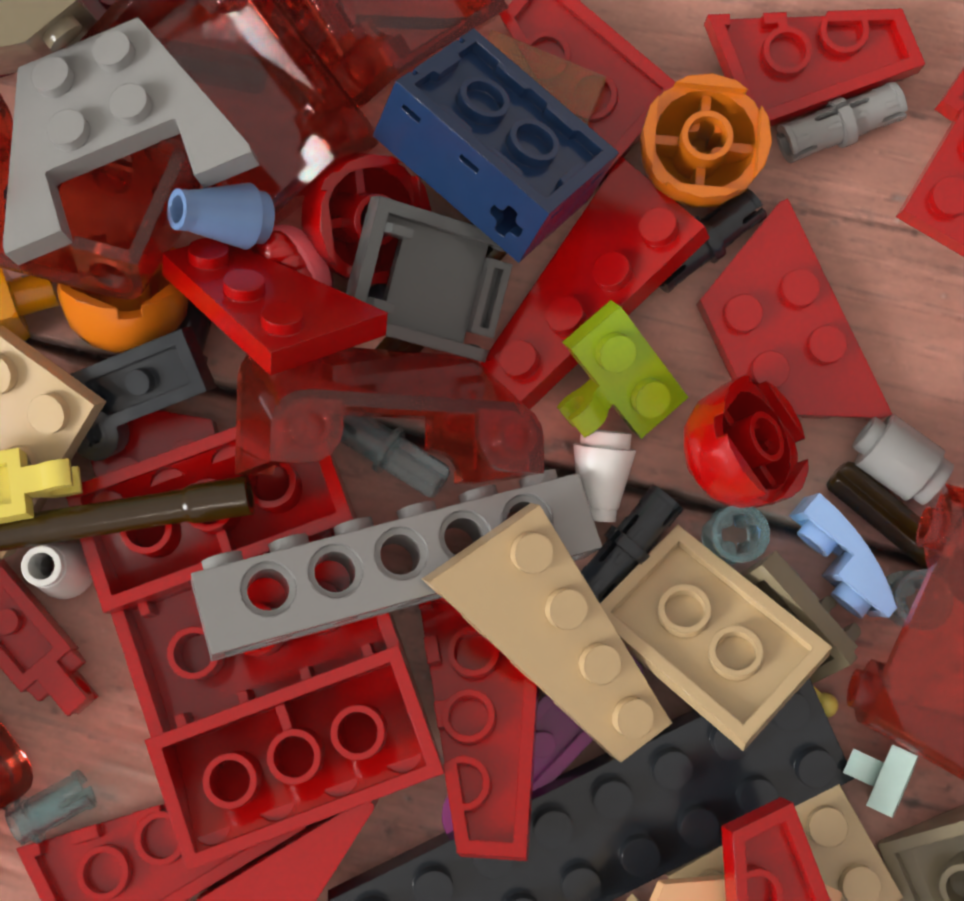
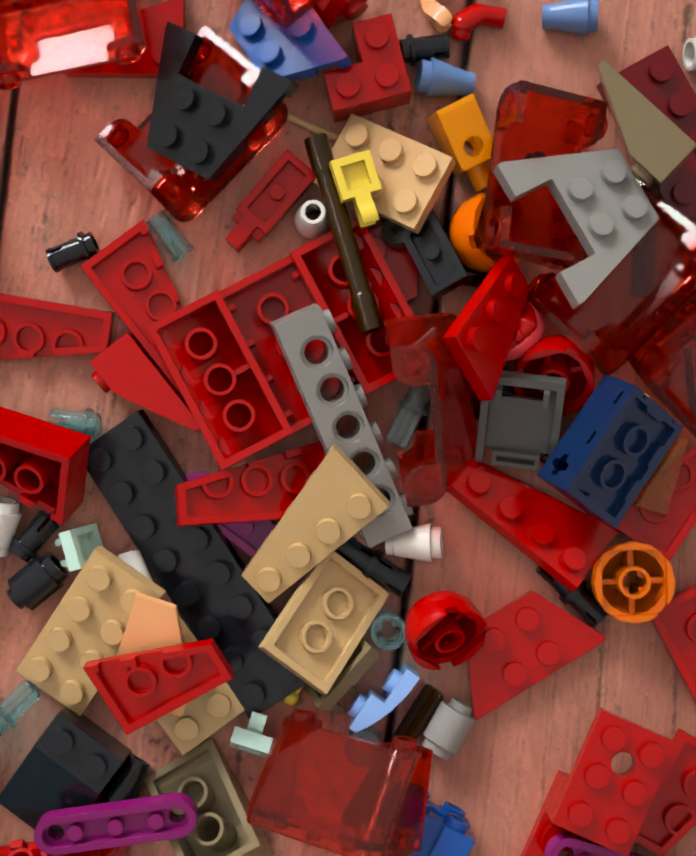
camera: 80 degrees right, 5 degrees up
(225, 213) = (541, 294): medium blue cone -> none
(621, 375) = (477, 547): lime plate -> none
(841, 122) = (661, 669): light grey pin -> none

